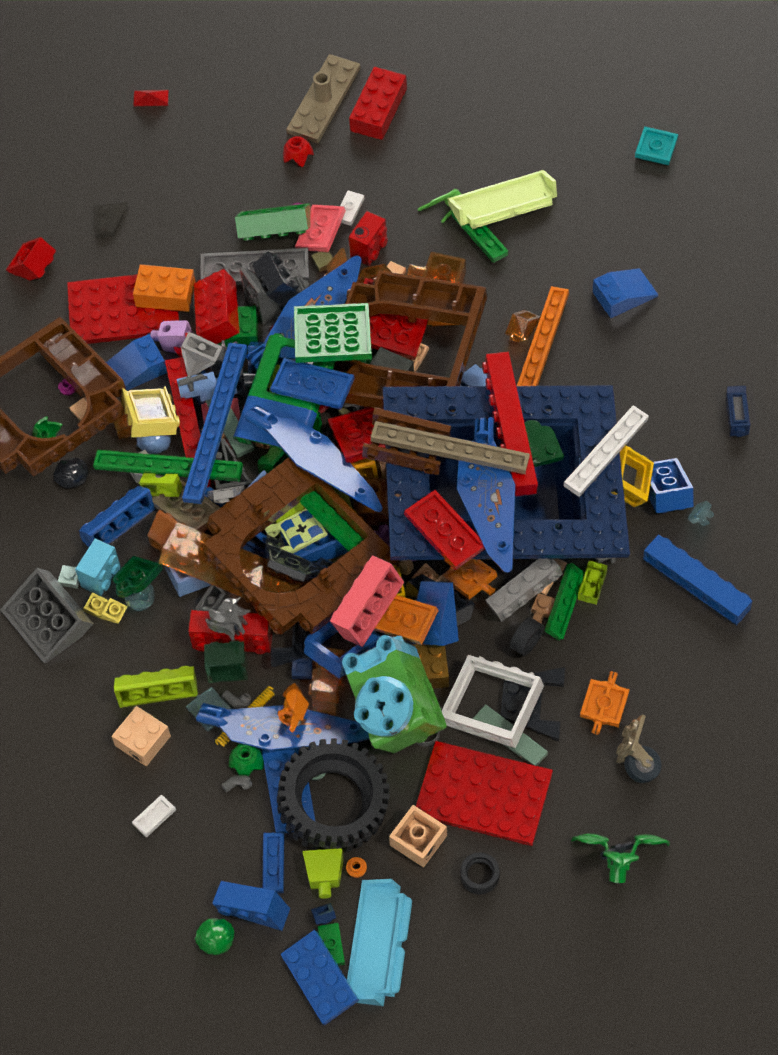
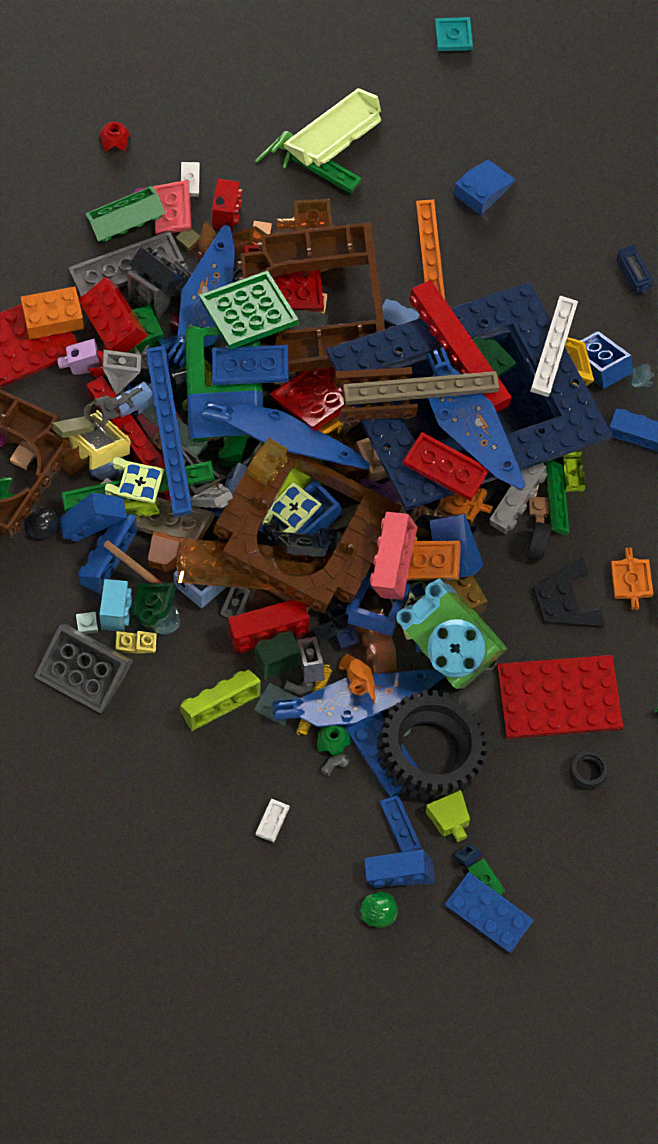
camera: 30 degrees left, 5 degrees up
(114, 479) = (92, 516): none -> blue wedge
(128, 532) = (130, 562): none -> medium nougat bar
(130, 393) = (73, 427): none -> olive tile
(138, 362) = (58, 392): blue slope -> none
(141, 736) = (227, 750): light nougat brick -> none
(167, 461) = (138, 481): none -> yellowish green flag
(169, 386) = (108, 408): none -> dark grey piece
(227, 618) = (270, 613): dark grey hair -> none
(255, 676) = (311, 660): none -> flat silver brick
(288, 466) = (267, 460): none -> clear yellow brick
(323, 98) = (114, 75): dark tan plate -> none
(331, 520) = (323, 491): green plate -> none
(356, 873) = (477, 808): orange plate -> none
(377, 941) = (523, 855): medium azure slope -> none
(378, 103) = (172, 65): red brick -> none
(418, 836) = (522, 755): light nougat brick -> none
(482, 729) = (534, 639): white window -> none
(521, 325) = (405, 247): clear orange slope -> none
(526, 747) = (560, 637): sand green tile -> none

